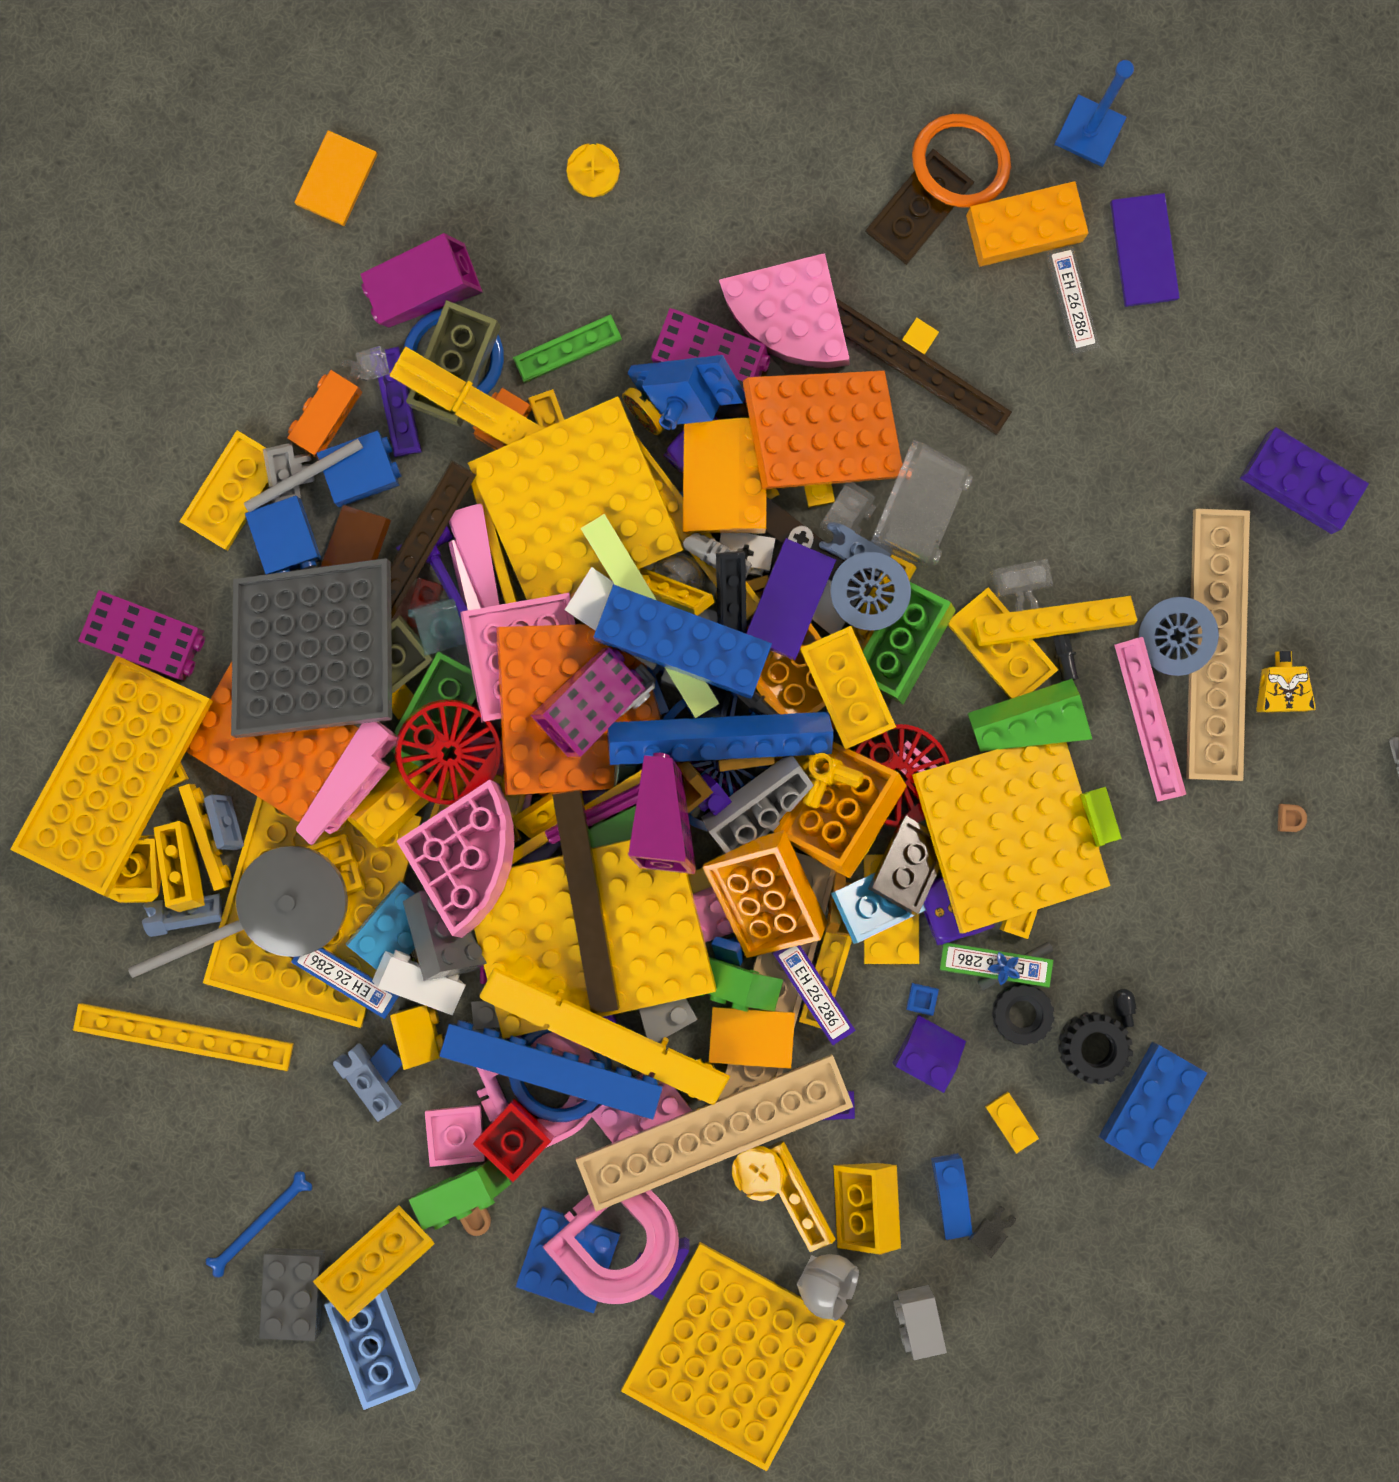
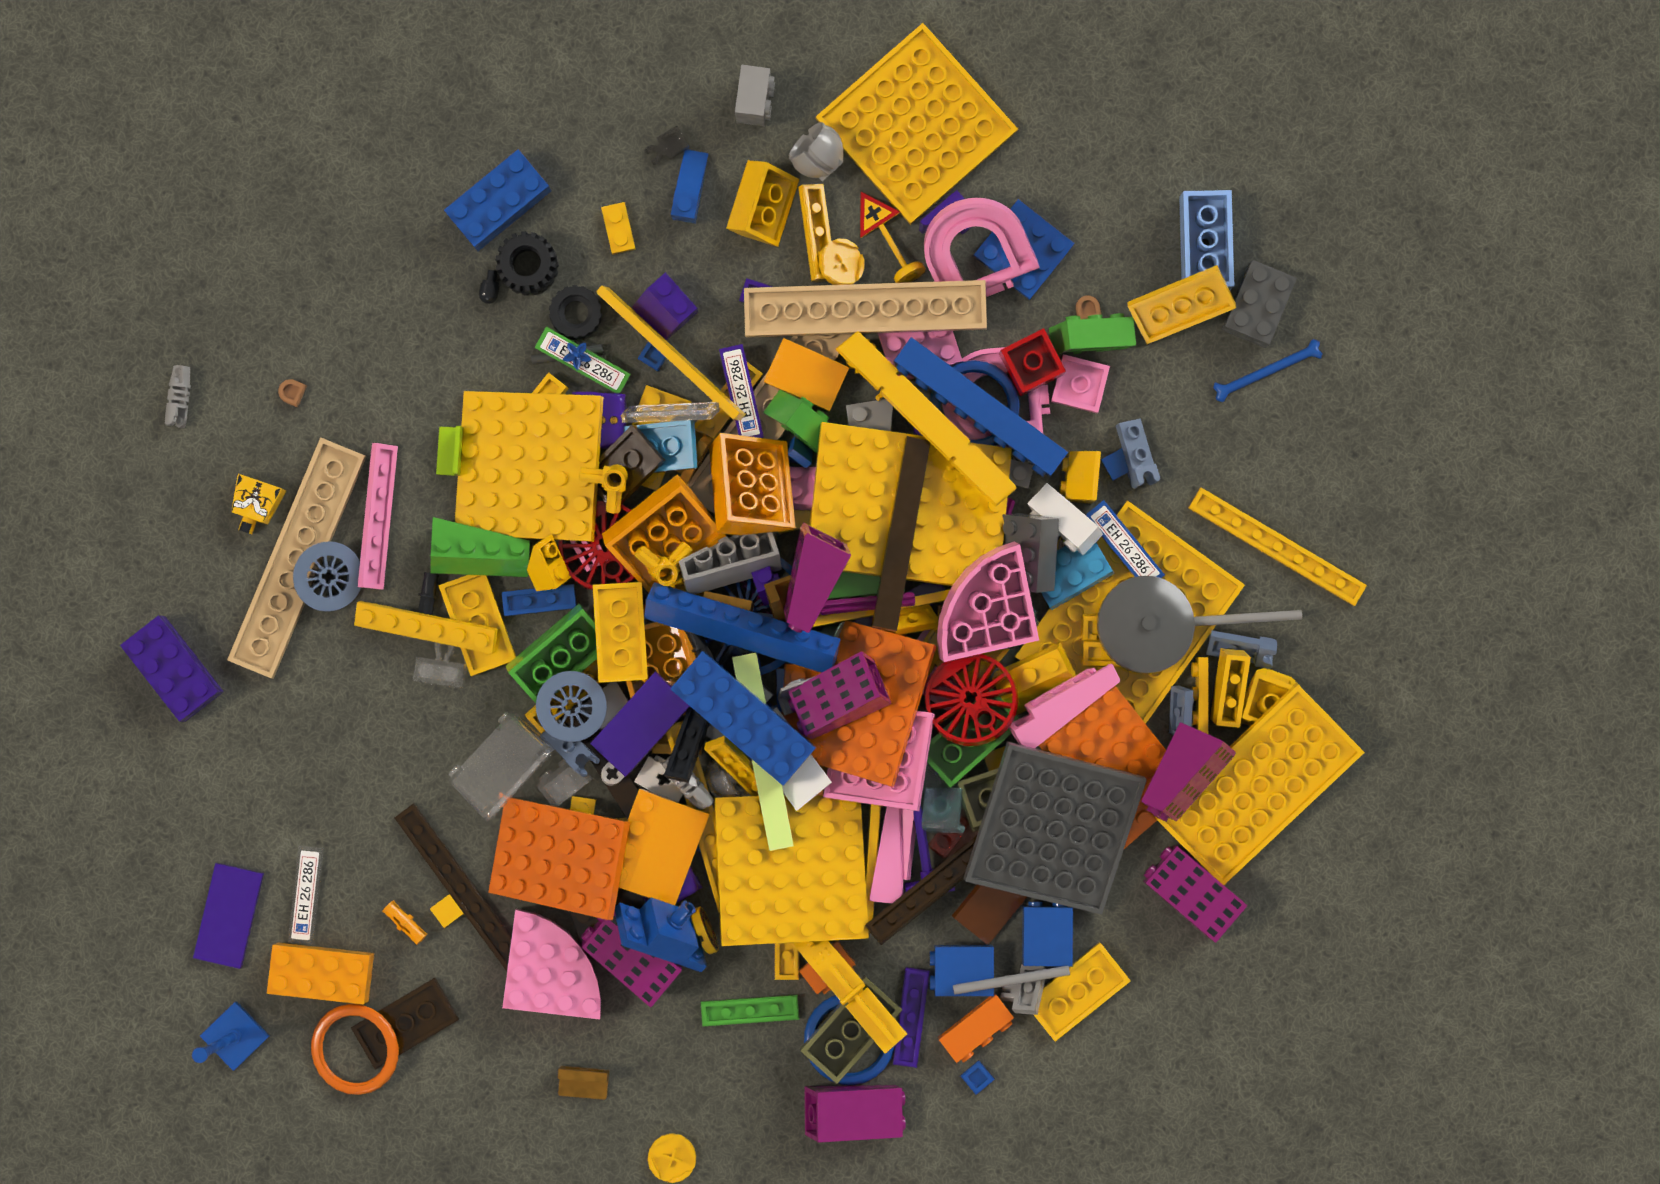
camera: 160 degrees left, 0 degrees up
(192, 759) = (1185, 772): none -> magenta slope
(306, 365) = (977, 1077): none -> blue tile
(369, 365) = (923, 1056): clear plate -> none
(713, 213) = (583, 1082): none -> pearl gold panel
(741, 1239) = (874, 215): none -> yellow piece
(881, 942) = (670, 412): none -> clear tile
(905, 1007) = (670, 353): none -> yellow tile
(912, 837) = (613, 489): none -> yellow axle
(946, 693) = (534, 601): none -> blue plate
(951, 731) = (547, 565): none -> yellow slope
(959, 308) = (404, 922): none -> light orange pin

